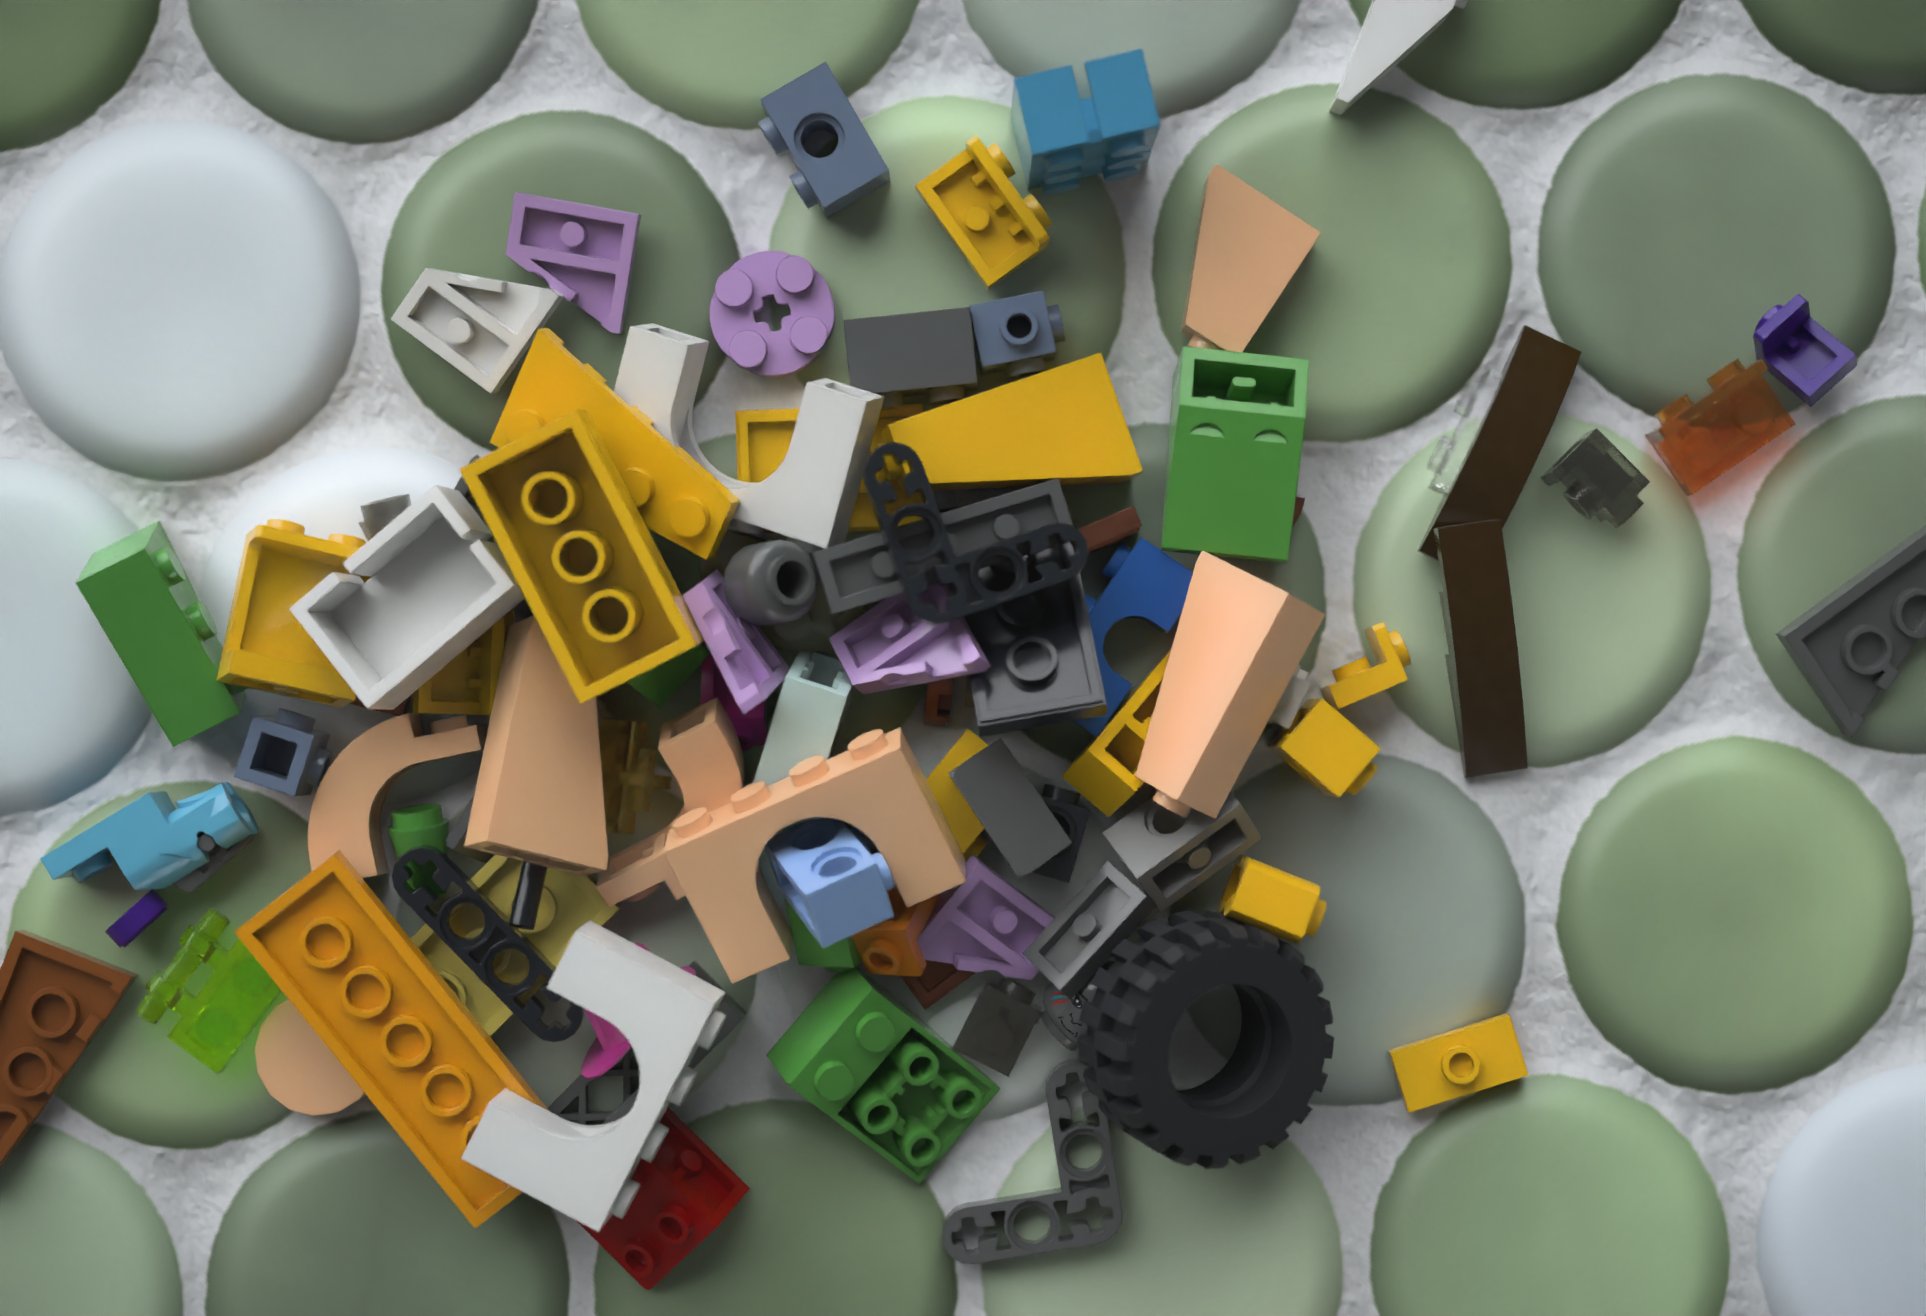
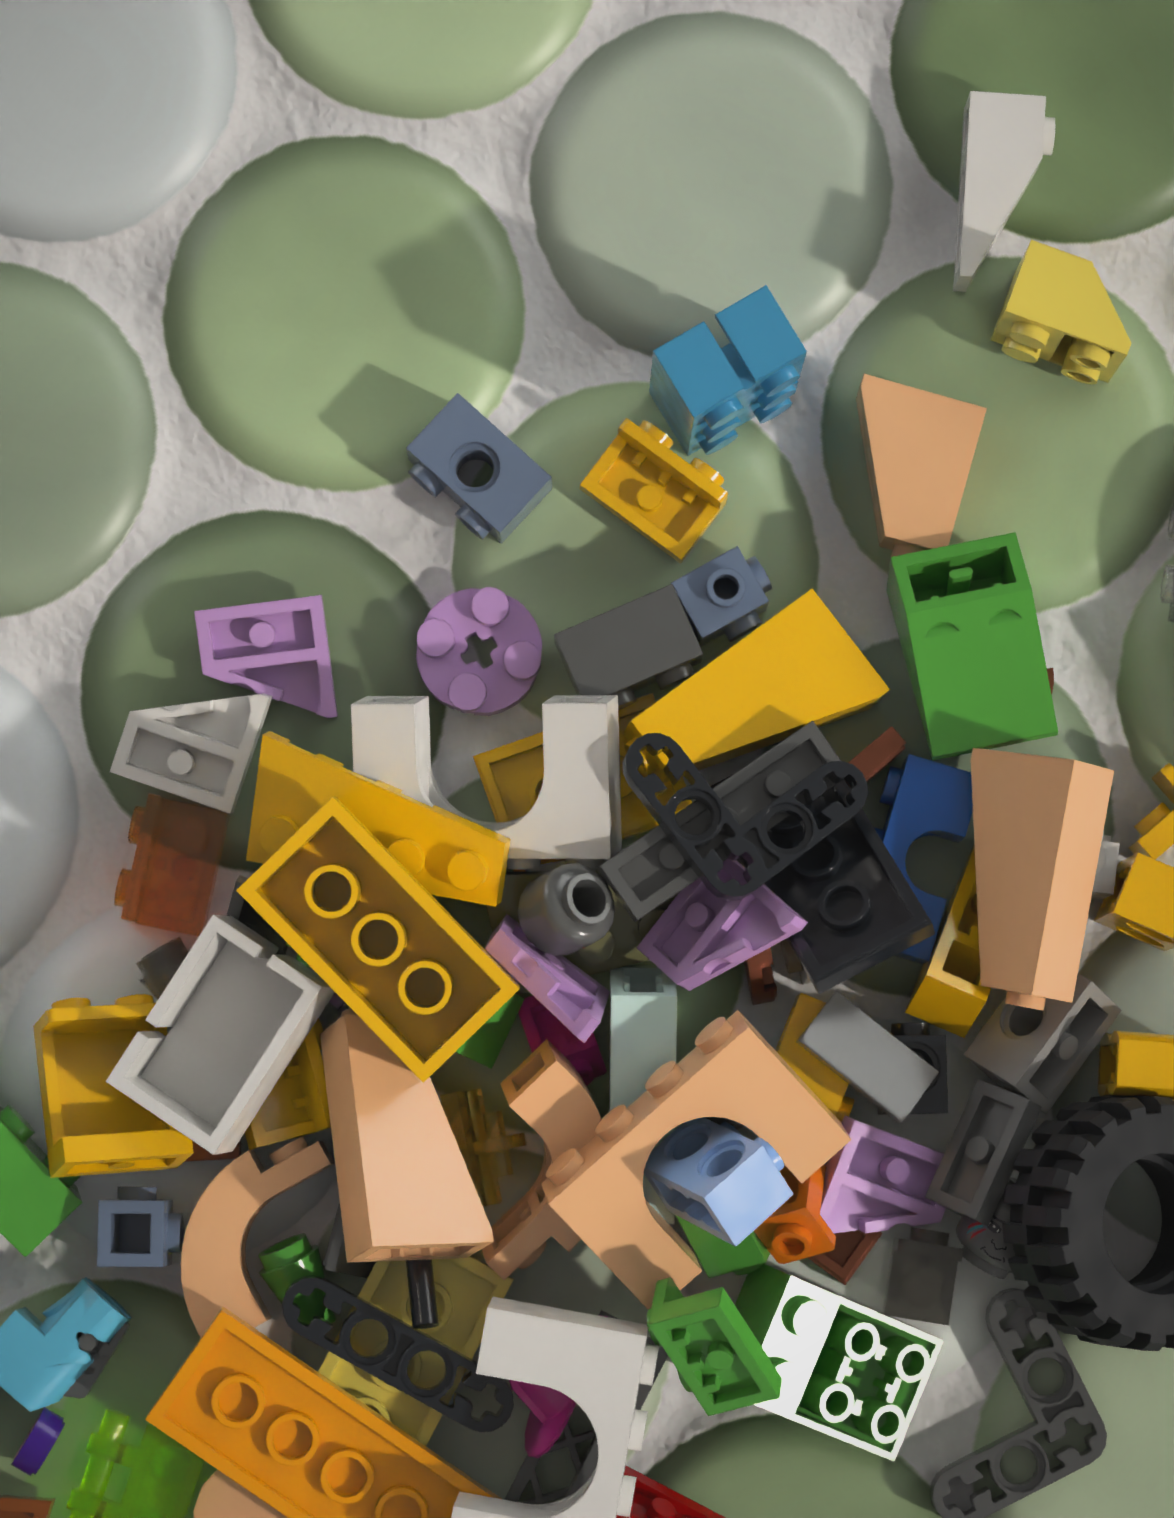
camera: 15 degrees left, 5 degrees down
(422, 424) = (172, 865): none -> clear orange bracket
(774, 1033) = (712, 1348): none -> bright green bracket
(1420, 166) = (1062, 316): none -> light yellow slope

